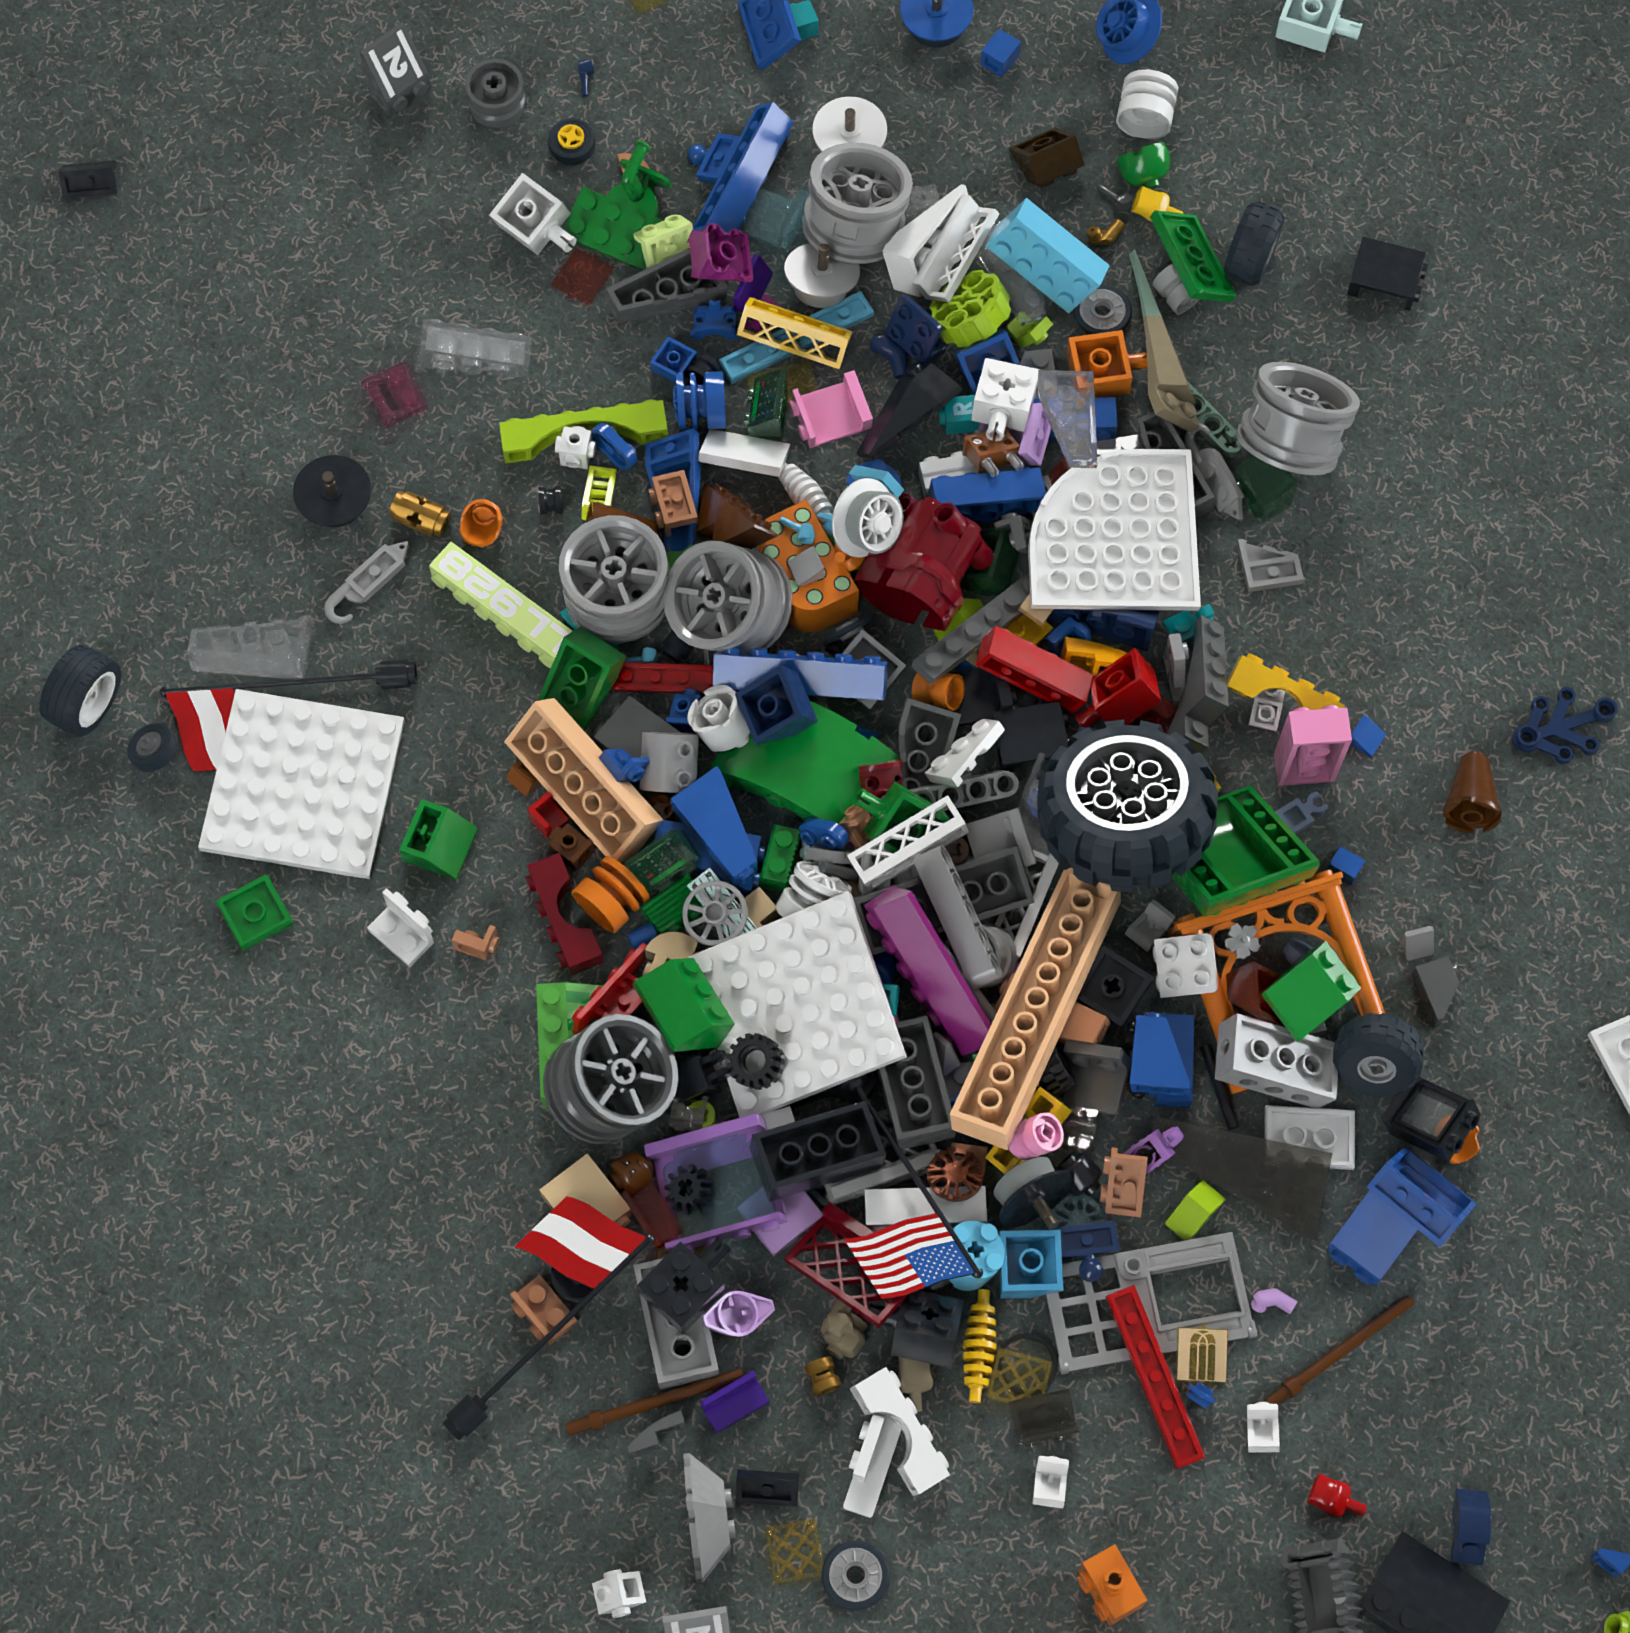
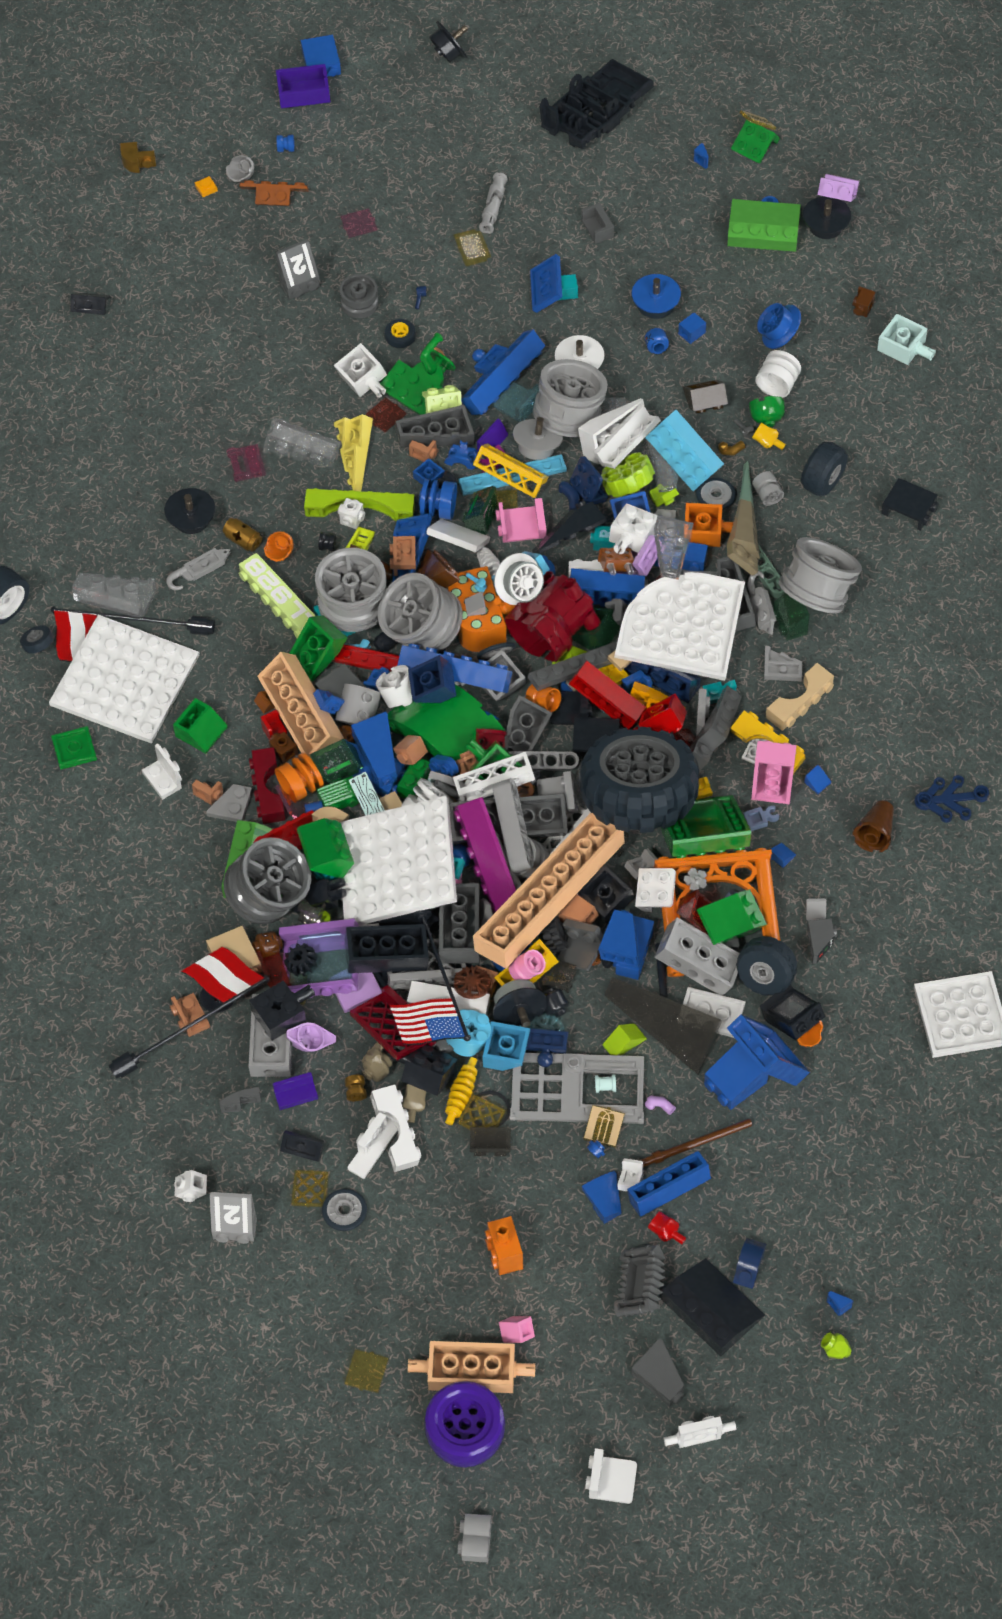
camera: 15 degrees right, 10 degrees down
(517, 954) = (231, 804): none -> light grey wing
(549, 324) = (355, 441): none -> light yellow wedge
(598, 1419) = (206, 1084): reddish brown bar -> none
(604, 939) = (287, 802): none -> clear pink piece
(613, 446) = (376, 517): blue plate -> none
(655, 328) = (422, 452): none -> nougat bracket
(708, 1518) = (257, 1152): light grey wedge -> none
(715, 913) = (361, 798): light grey wheel -> none
(720, 254) = (474, 413): magenta slope -> none
(767, 819) = (410, 750): none -> nougat brick
(767, 1073) = (354, 881): black tyre -> none
(954, 83) = (656, 341): none -> blue head
(961, 757) = (533, 742): white wing -> none
(1050, 1481) = (484, 1179): white bracket -> none
(1125, 1184) = (580, 1011): nougat bracket -> none
(1155, 1377) = (569, 1131): red tile -> none
(1162, 1145) = (611, 992): medium lavender piece -> none
(1187, 1287) = (605, 1083): none -> light aqua bush
(1192, 256) = (782, 470): green tile -> none
(1231, 1467) = (604, 1196): none -> blue slope
(1292, 637) = (785, 711): none -> tan arch
(1323, 1429) = (669, 1183): none -> blue brick

